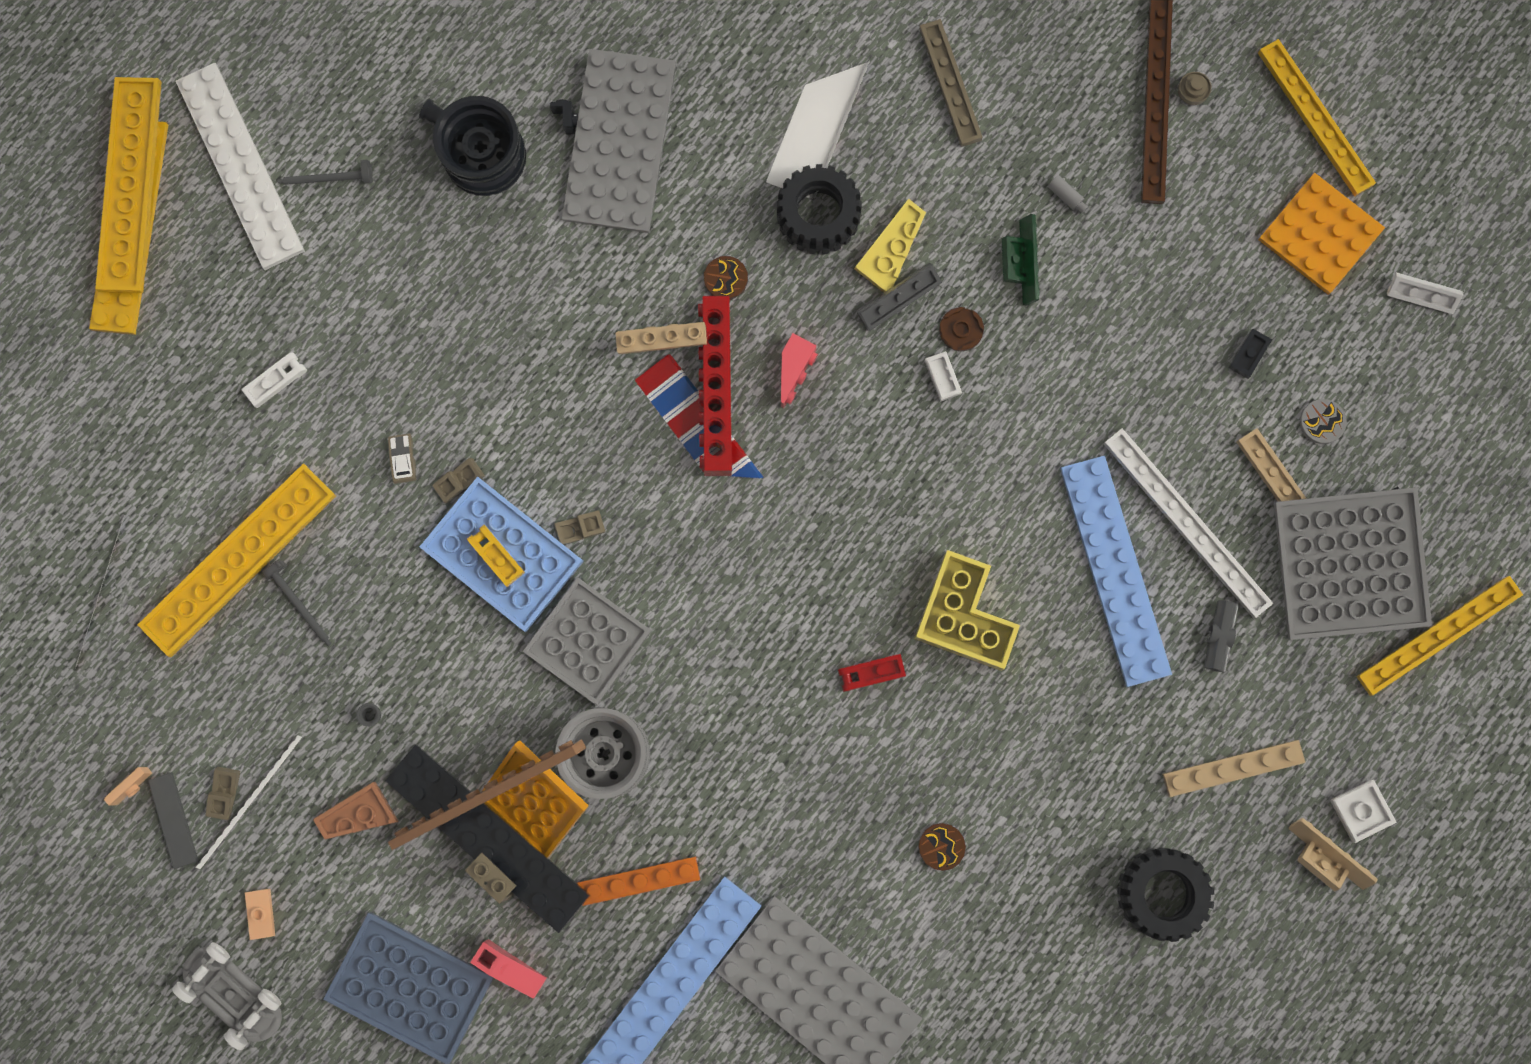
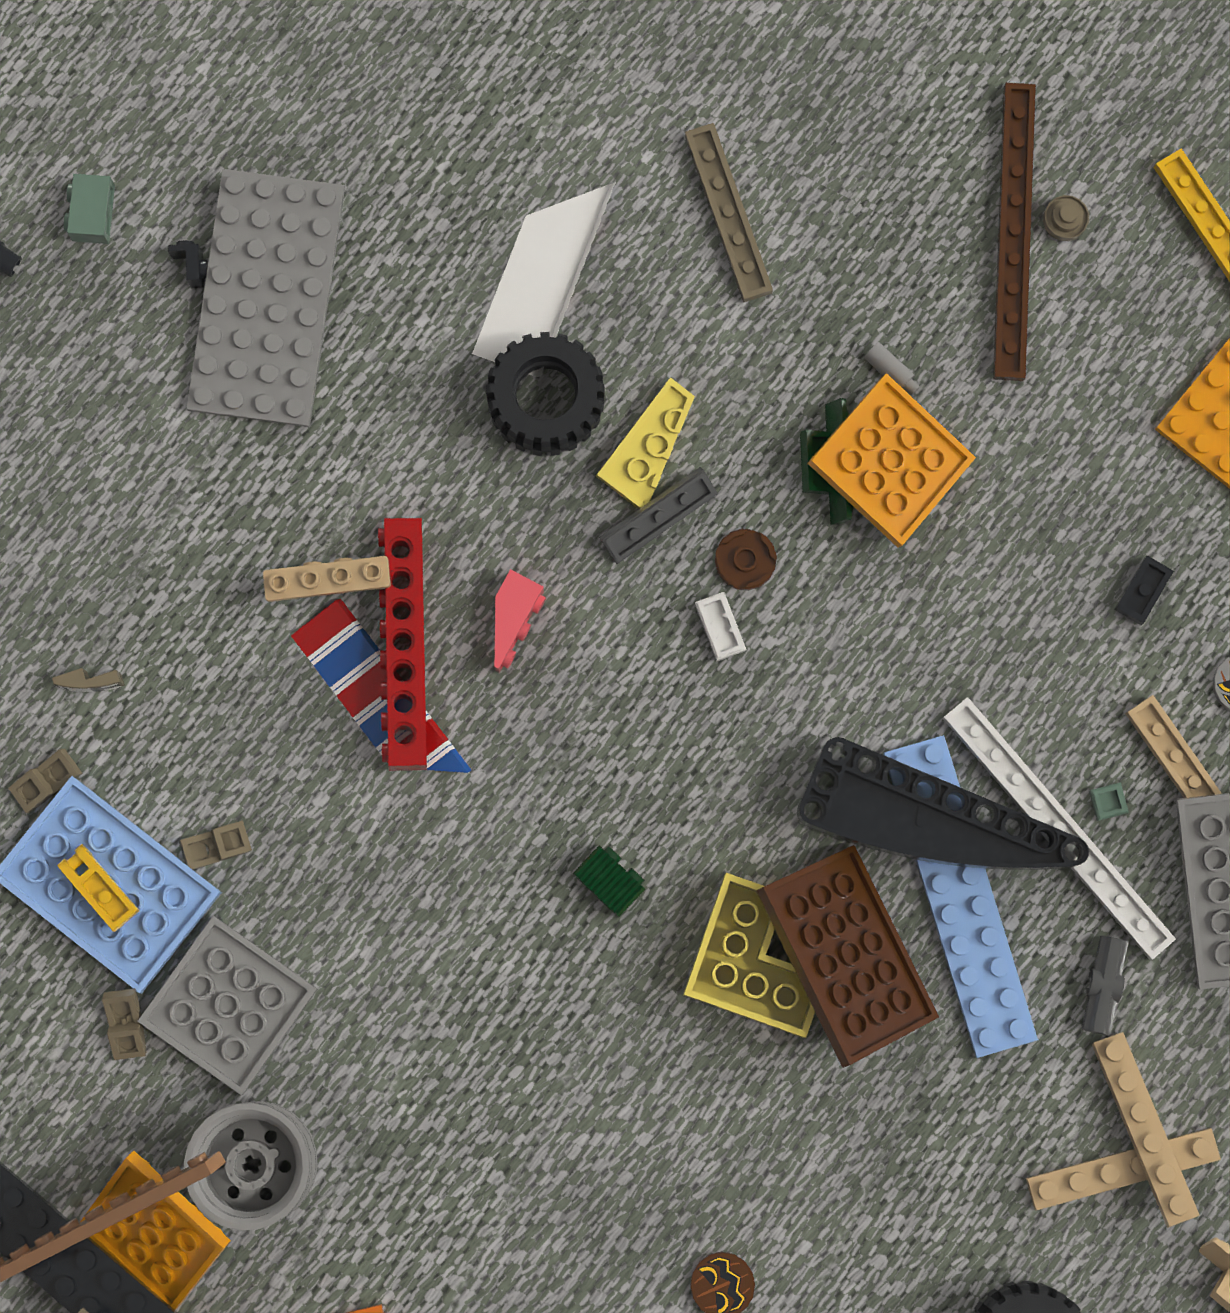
camera: 10 degrees left, 0 degrees up
(460, 120) = (43, 273): black wheel -> none
(483, 410) = (79, 681): none -> dark tan slope
(494, 76) = (90, 208): none -> sand green brick
(513, 658) = (124, 1030): none -> dark tan slope
(726, 277) = (417, 490): tile -> none
(862, 556) = (609, 880): none -> dark green brick
(872, 672) = (625, 1043): red plate -> none
(1035, 610) = (847, 955): none -> reddish brown plate
(1068, 258) = (891, 460): none -> light orange plate
(1075, 517) = (902, 823): none -> black beam
(1224, 504) = (1108, 801): none -> sand green tile
(1250, 740) = (1145, 1130): none -> tan plate

